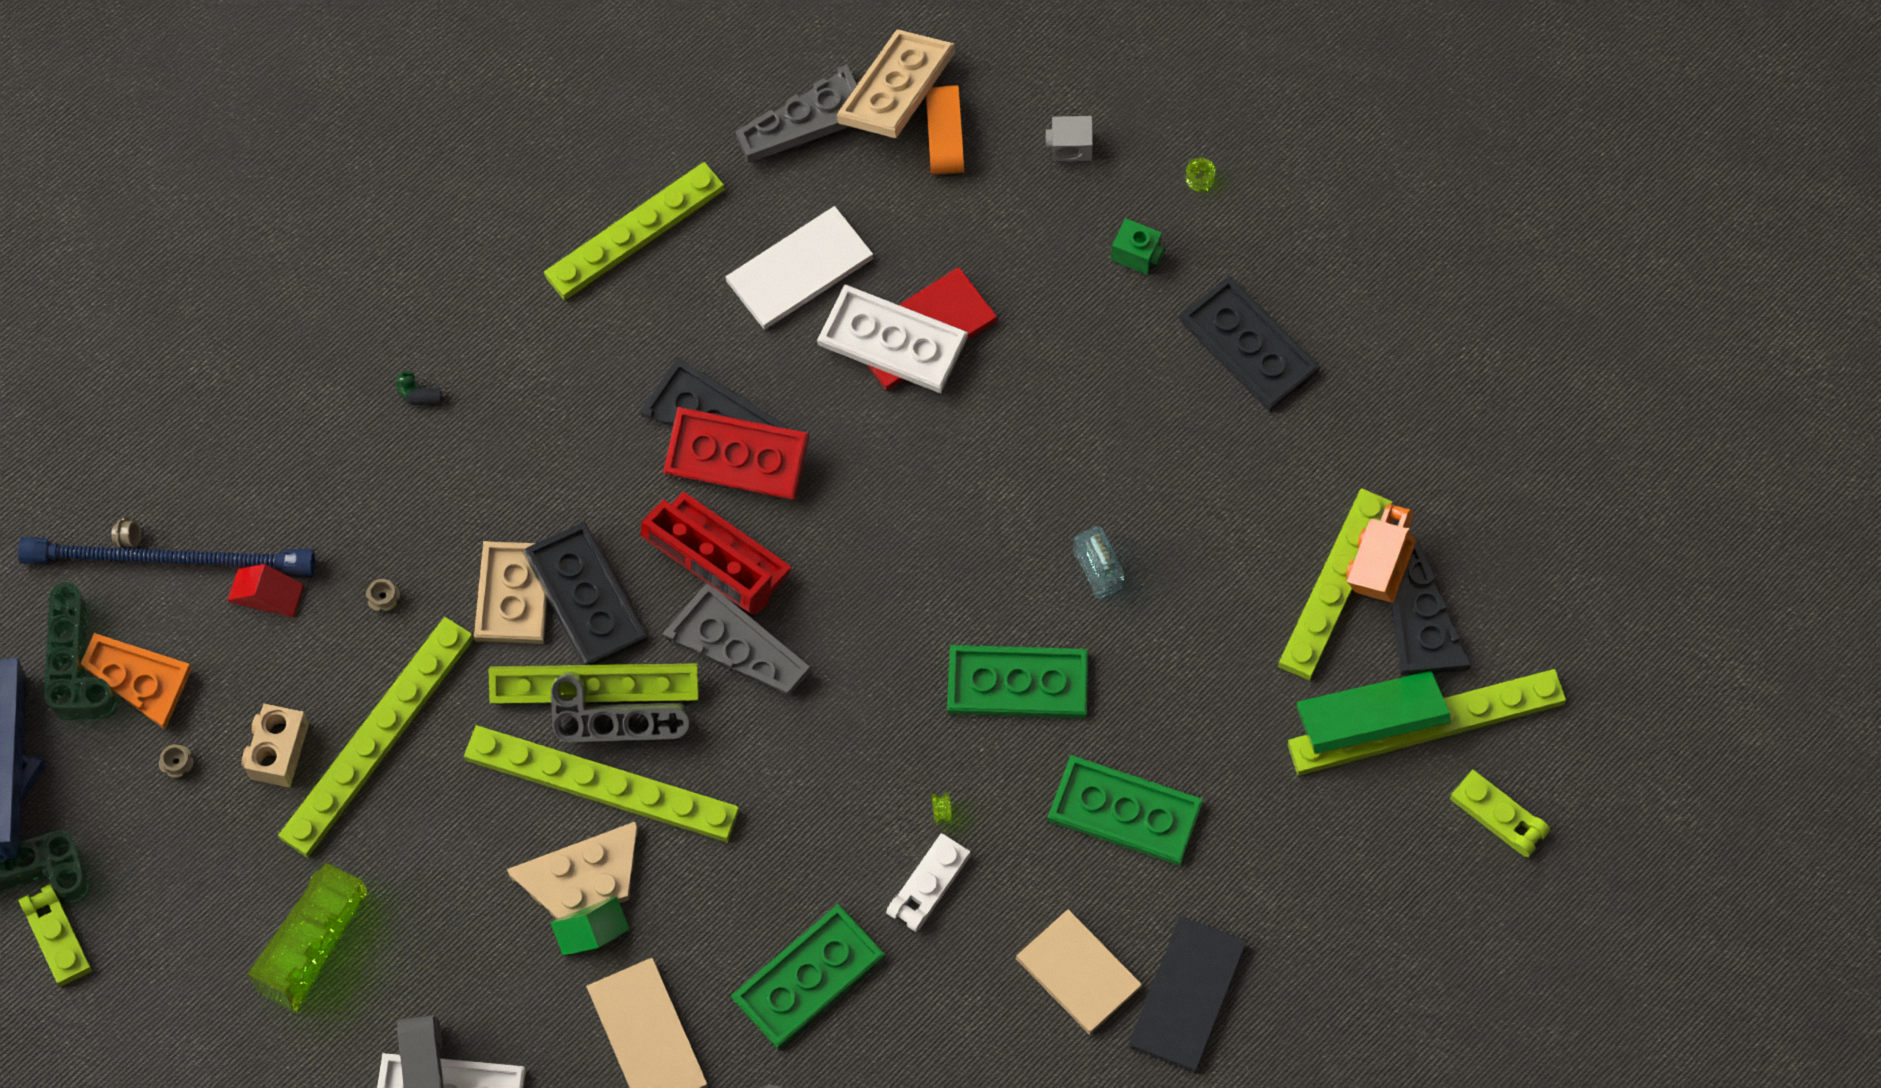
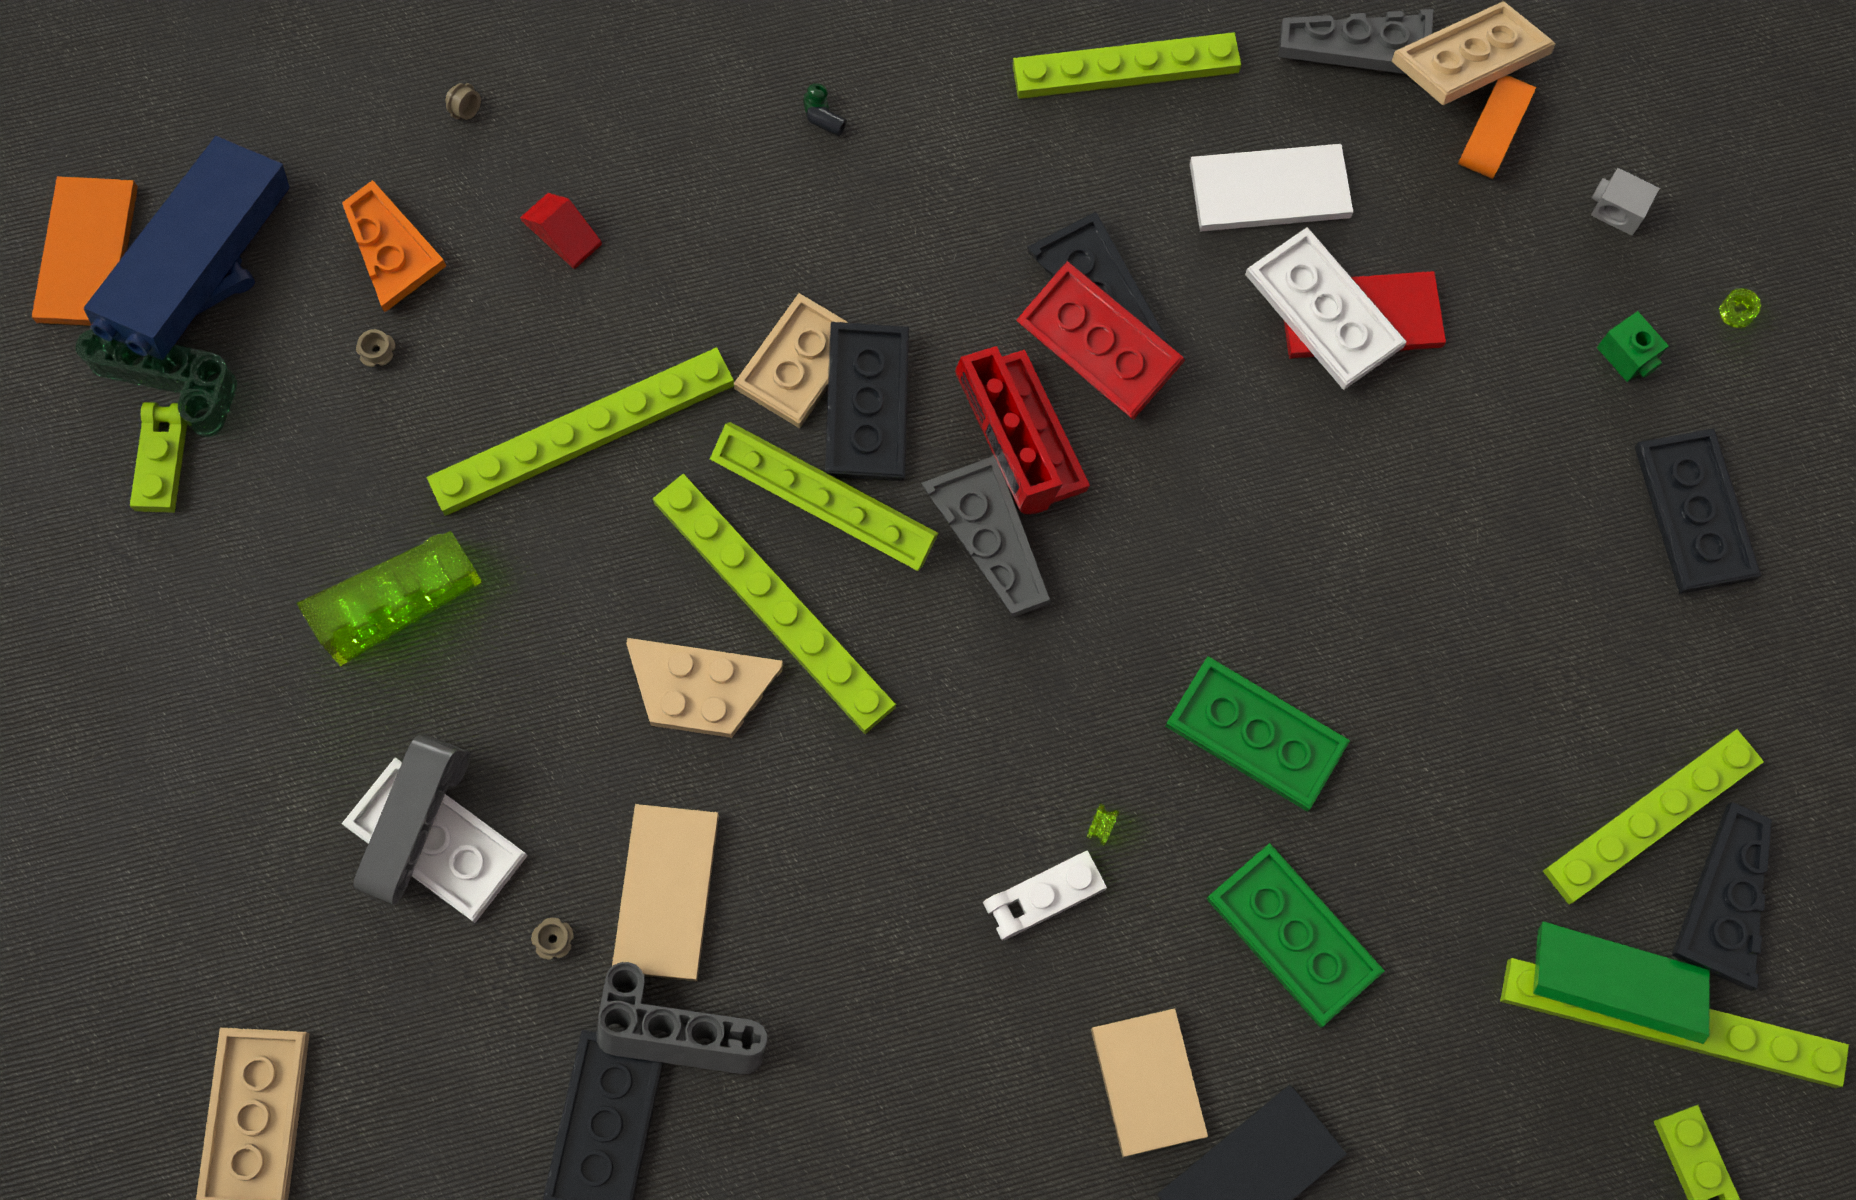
camera: 25 degrees right, 5 degrees up
(41, 551) = (372, 73): dark blue hose -> none
(72, 650) = (360, 145): clear green beam -> none
(284, 746) = (485, 391): tan brick -> none
(379, 587) = (667, 284): dark tan plate -> none
(590, 927) = (675, 745): green slope -> none
(619, 714) = (829, 542): dark grey beam -> none
(808, 976) = (865, 923): green tile -> none
(1098, 561) = (1412, 655): clear light blue piece -> none
(1383, 555) = (1725, 816): brick -> none

